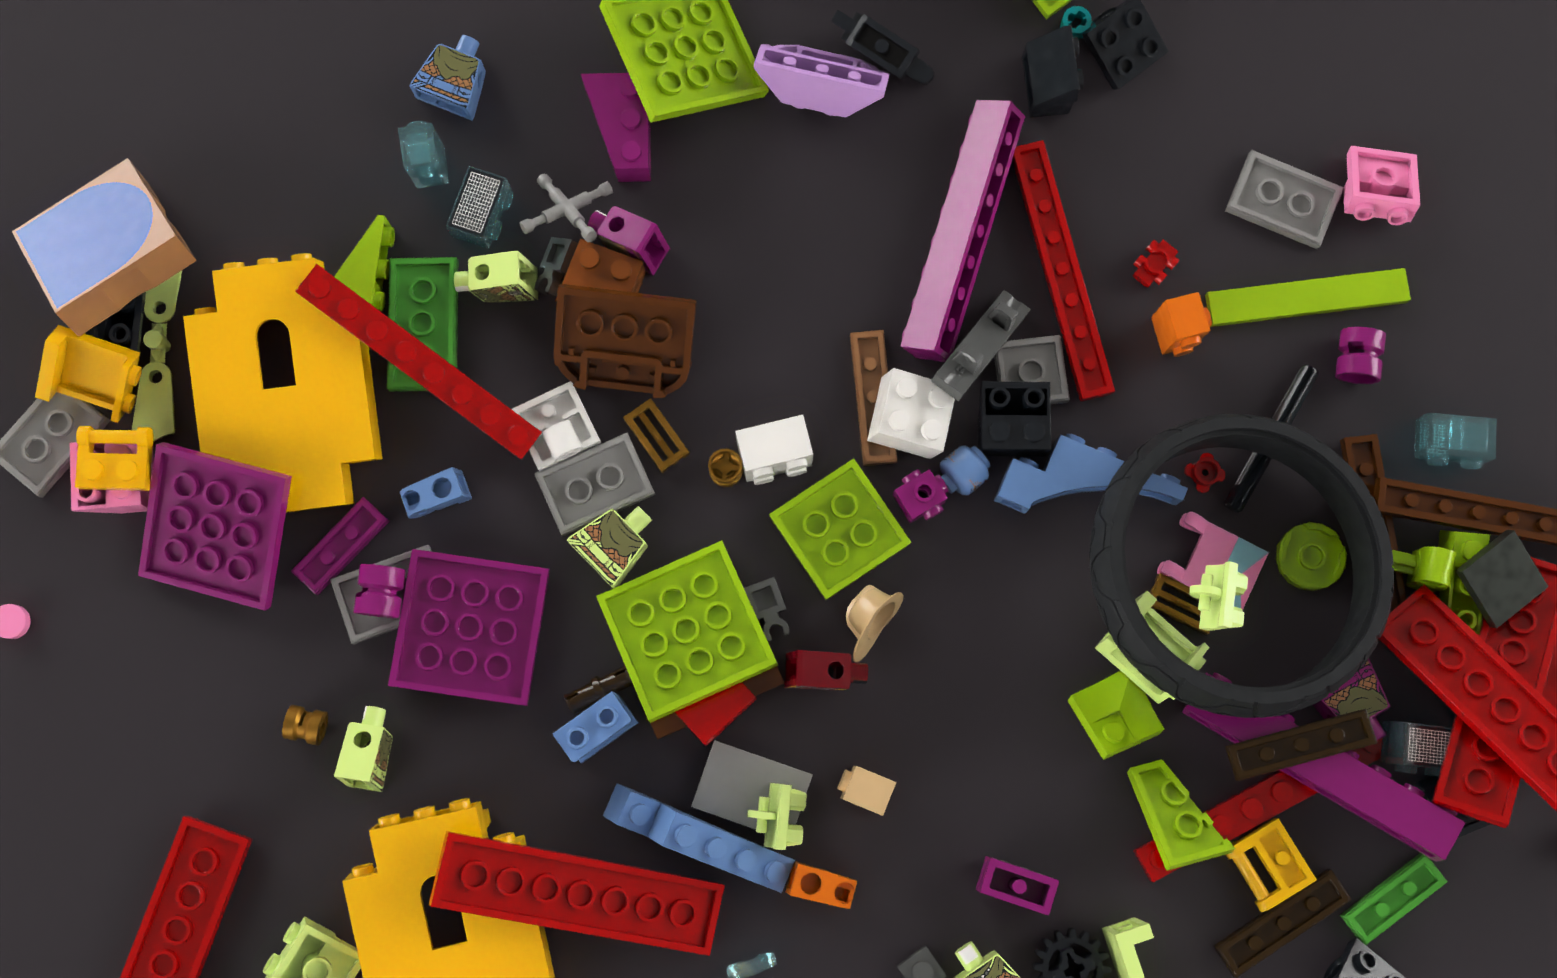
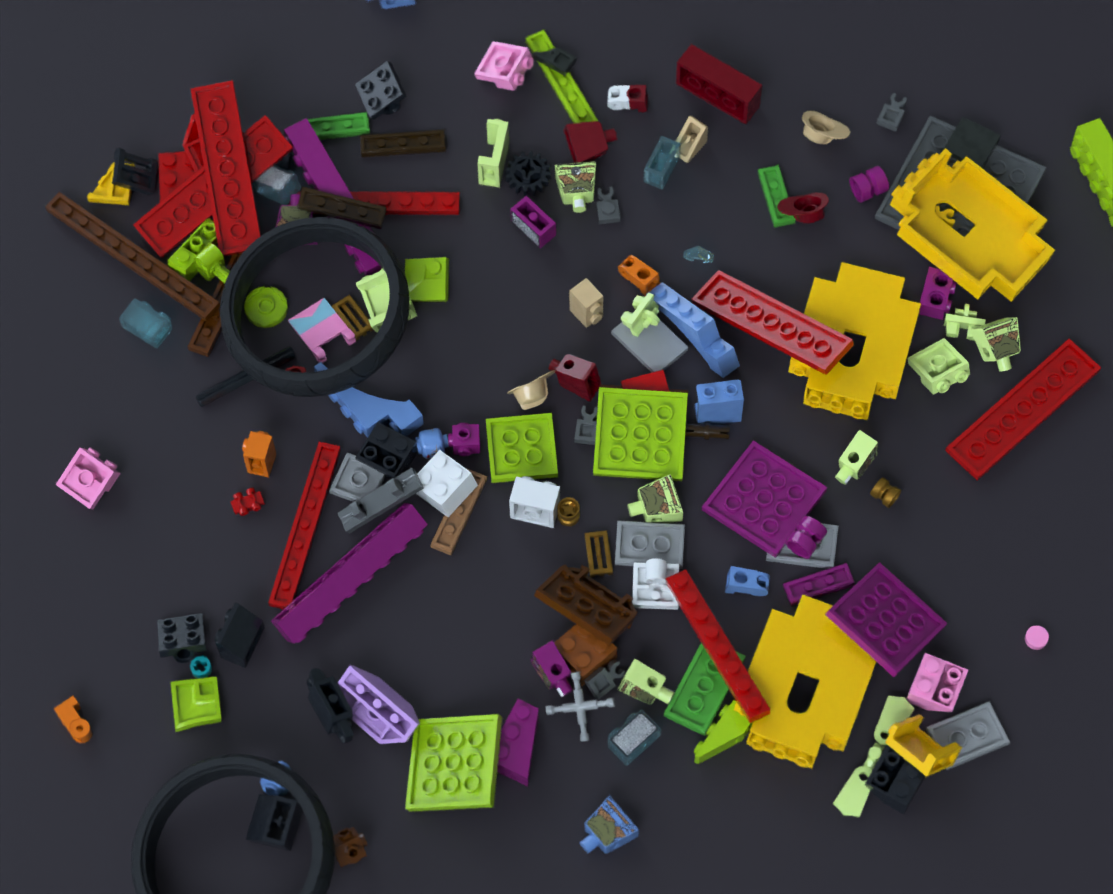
camera: 150 degrees left, 15 degrees down
(102, 247) = (879, 817): tile -> none
(114, 470) = (930, 674): yellow plate -> none
(423, 154) = (651, 779): clear light blue brick -> none
(1175, 821) = (429, 212): lime wing -> none
(1217, 596) = (343, 283): yellowish green hips -> none
(1279, 858) = (385, 171): yellow plate -> none
(1284, 199) = (147, 502): light grey tile -> none
(1308, 297) = (173, 440): lime tile -> none
(1360, 355) = (171, 384): magenta wheel -> none
(1501, 578) = (178, 235): pearl dark grey tile -> none

